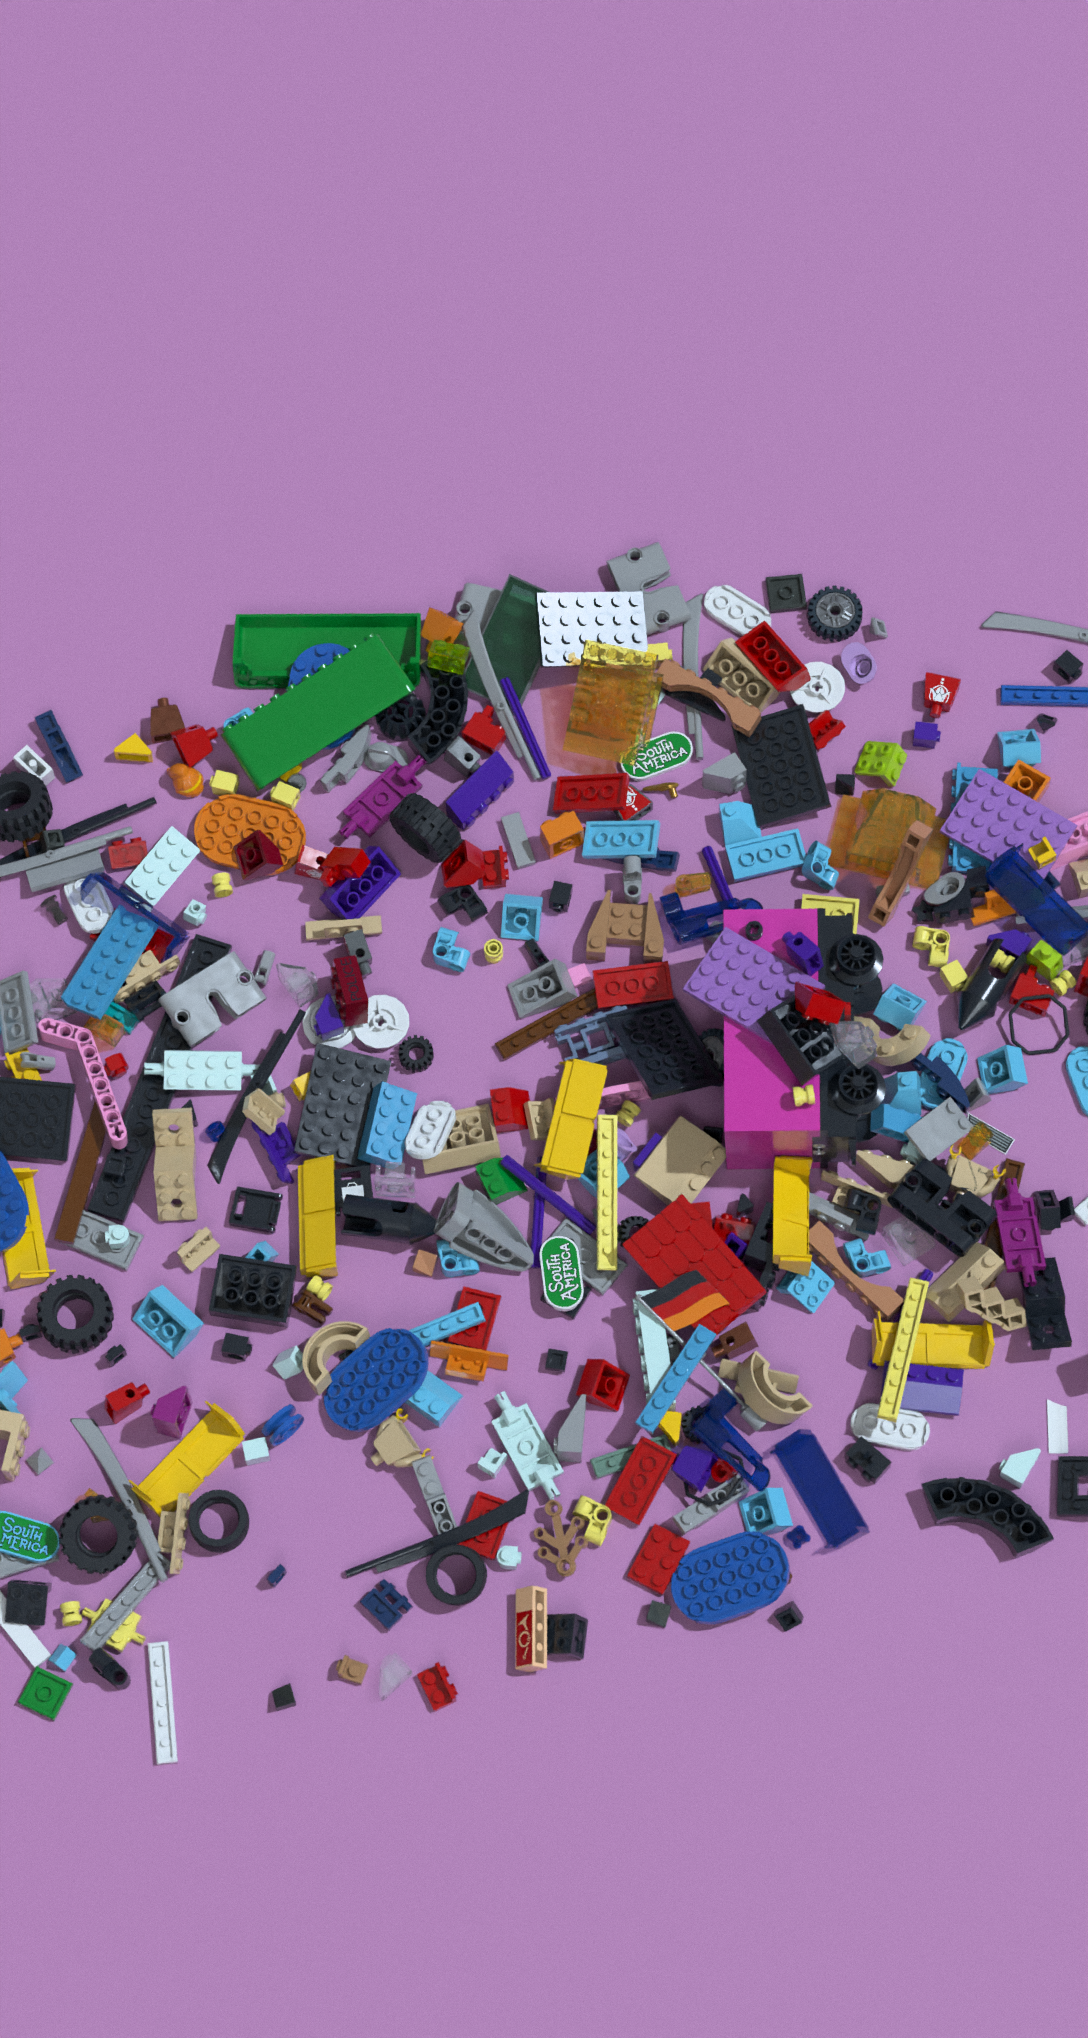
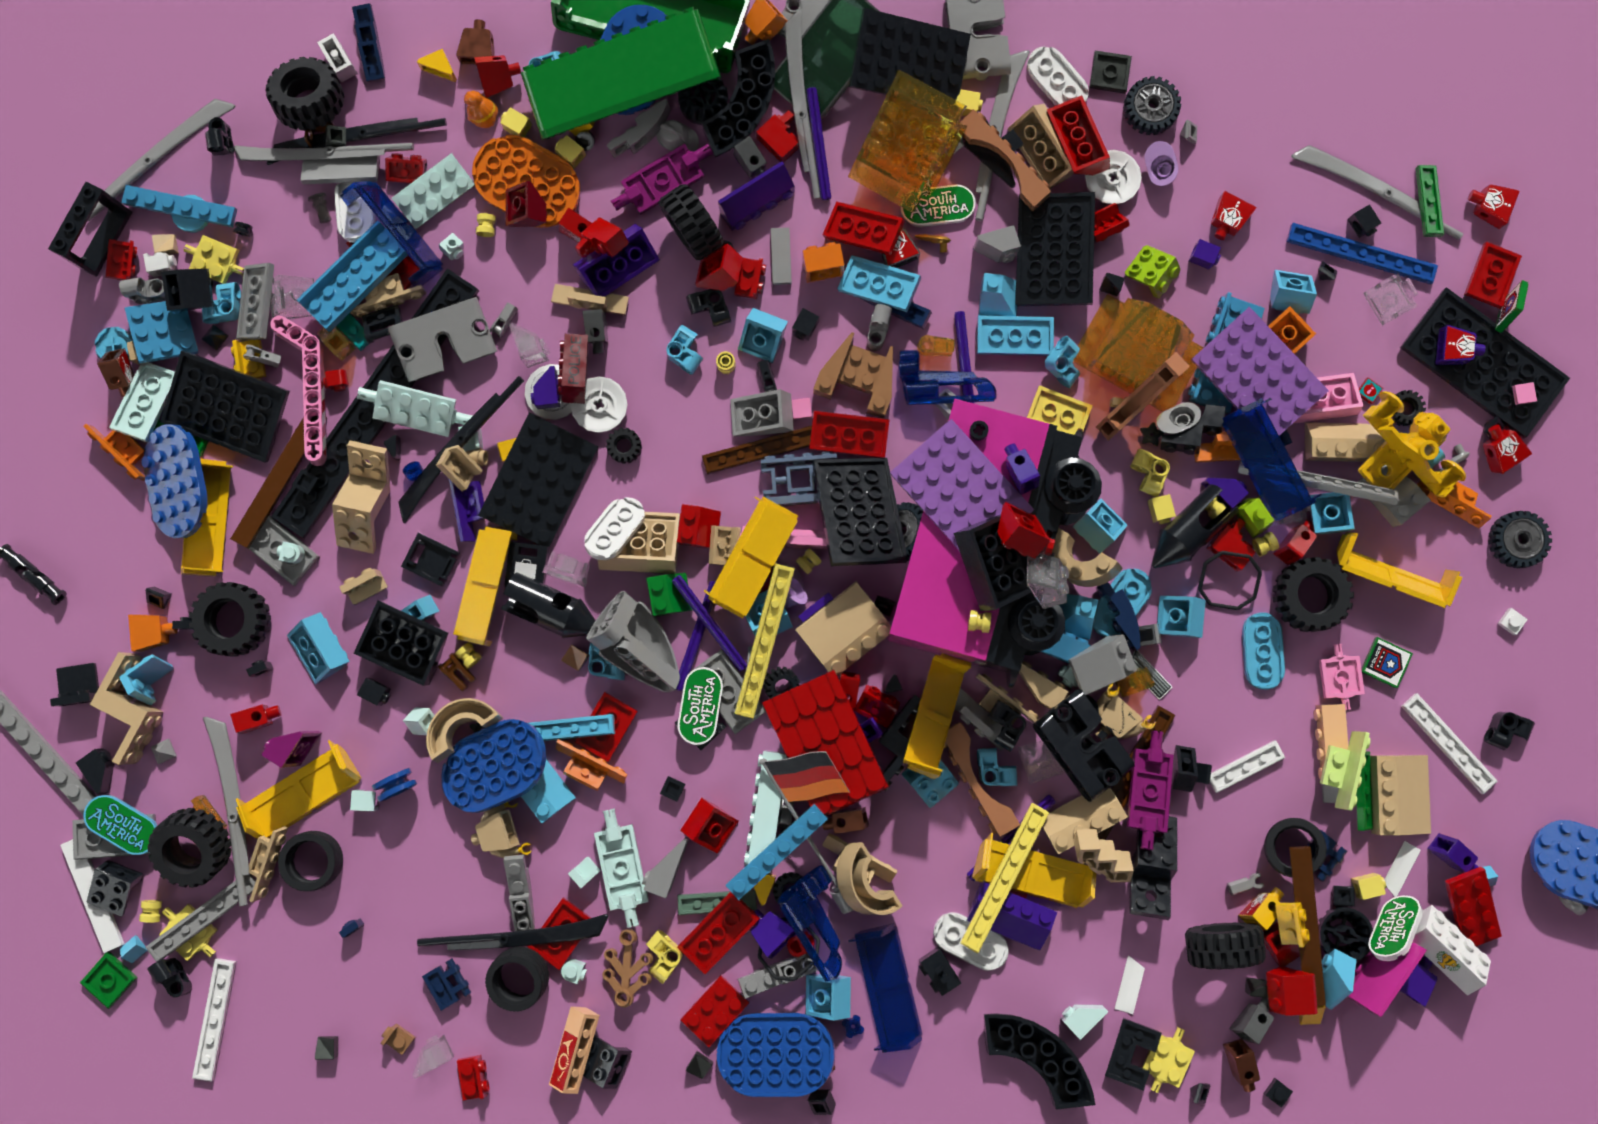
camera: 15 degrees right, 15 degrees up
(387, 1124) = (574, 512): dark azure brick -> none
(448, 656) = (762, 50): clear neon green bracket -> none
(1042, 853) = (1286, 411): yellow panel -> none

